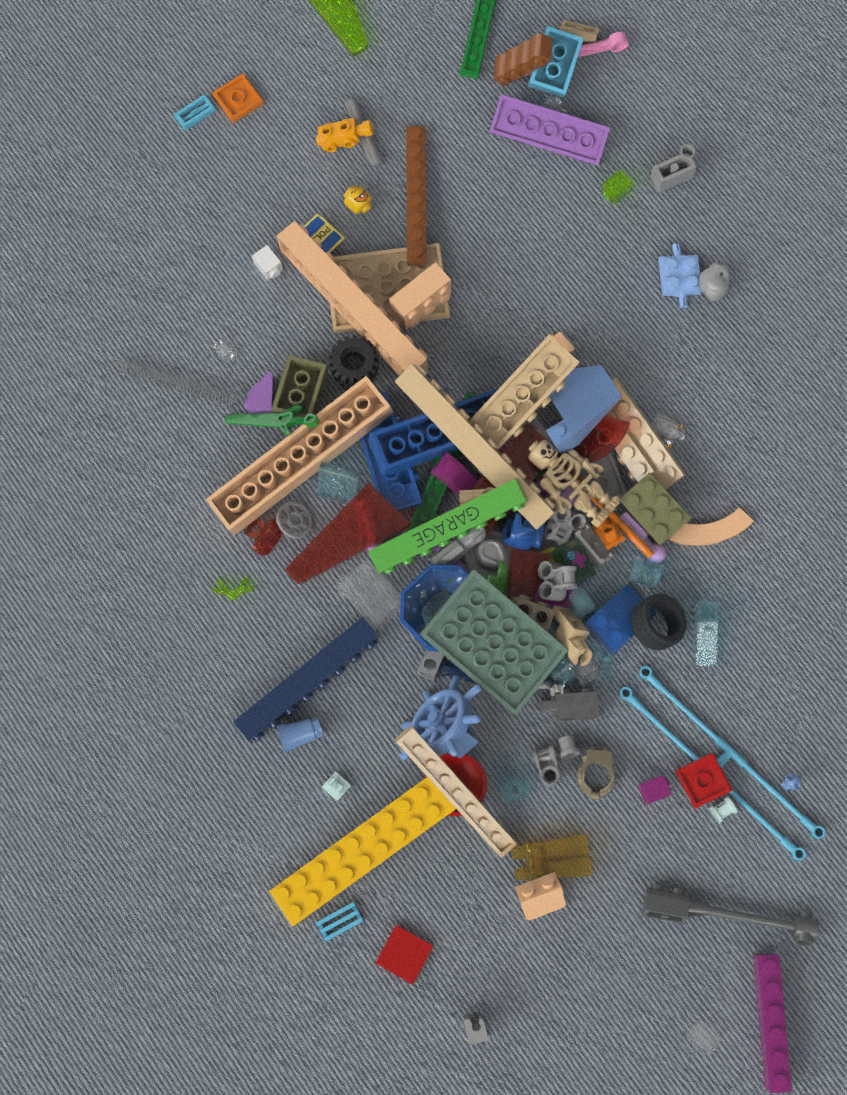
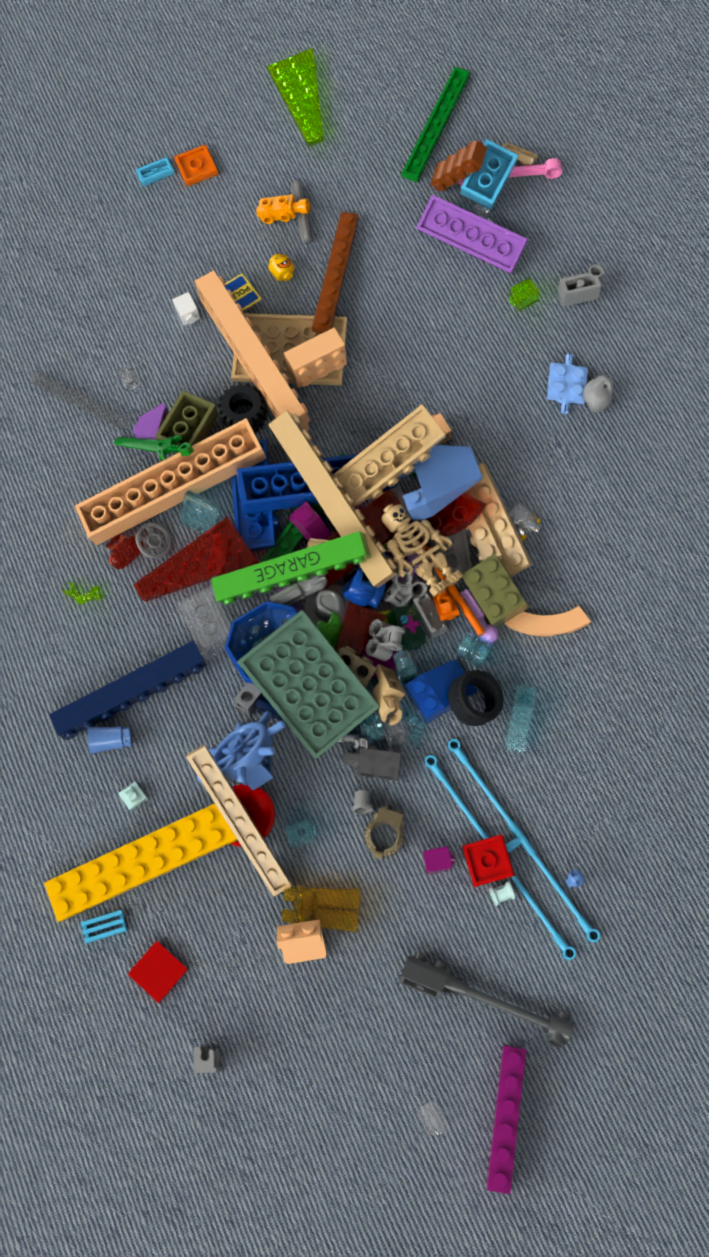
camera: 15 degrees right, 5 degrees down
(546, 764) = (337, 812): light grey piece -> none

